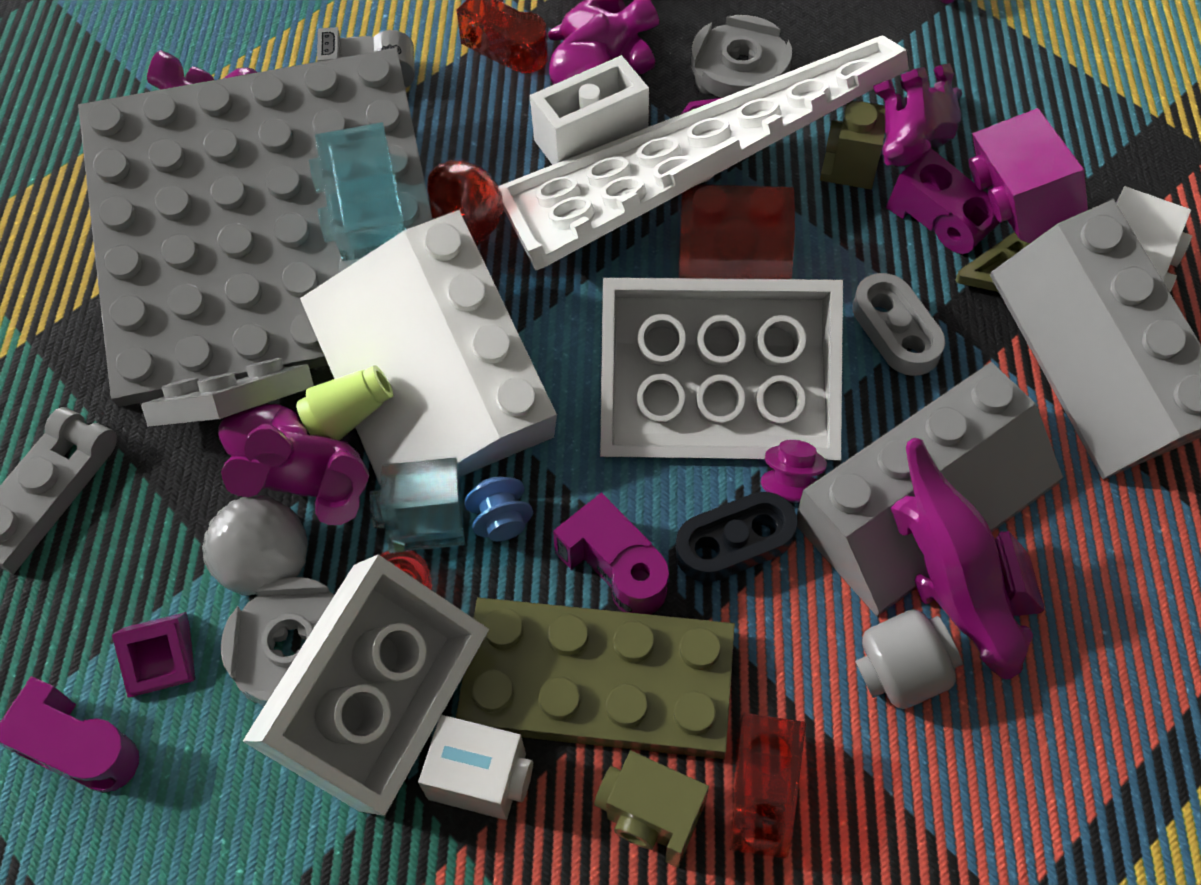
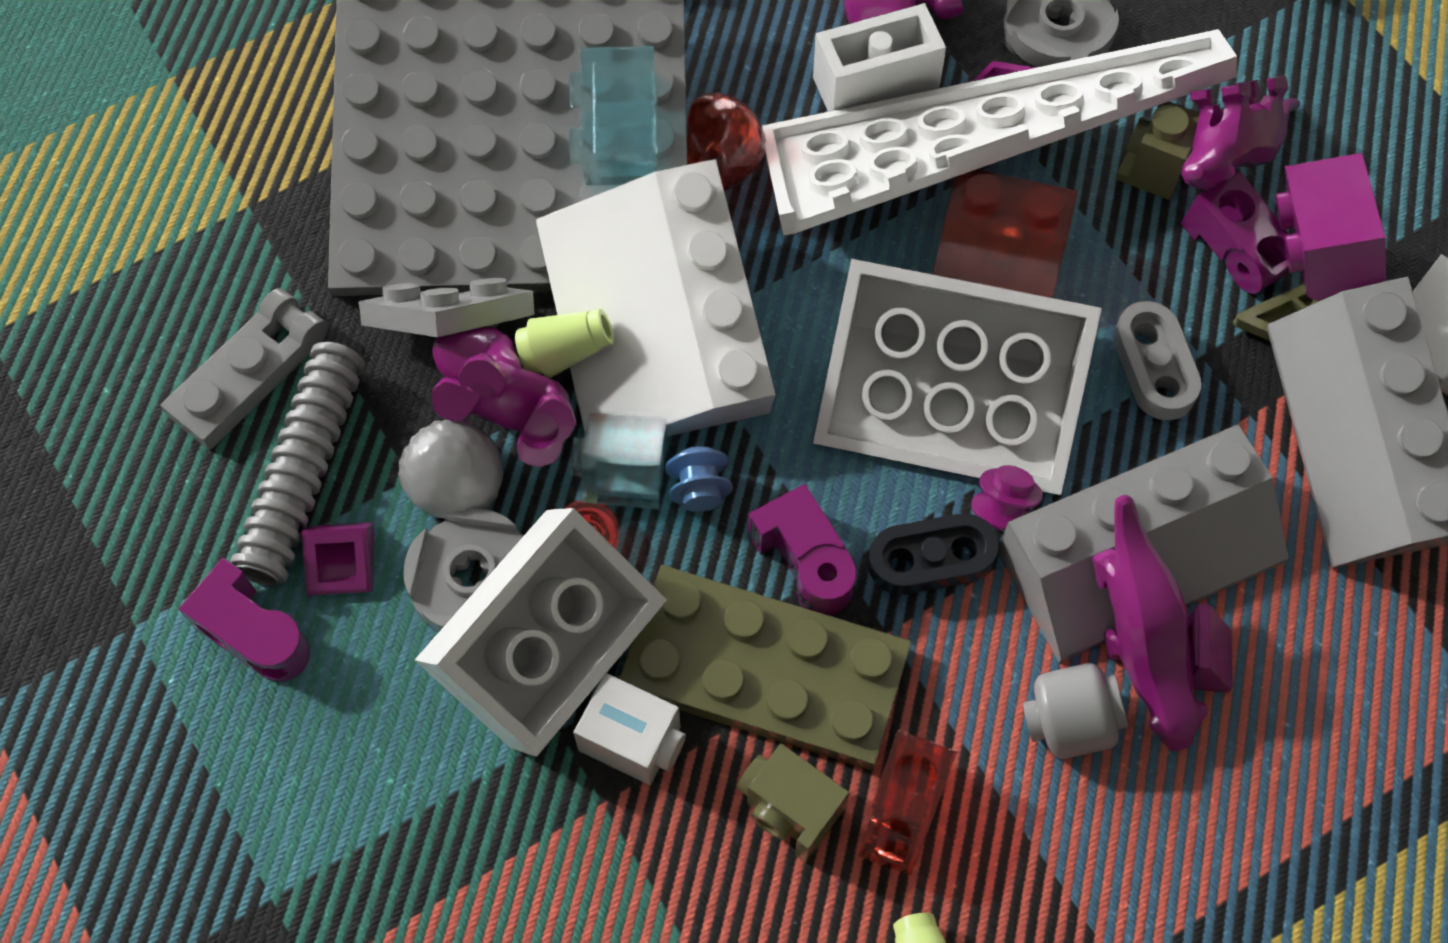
camera: 10 degrees right, 5 degrees up
(100, 572) = (298, 463): none -> light grey piece

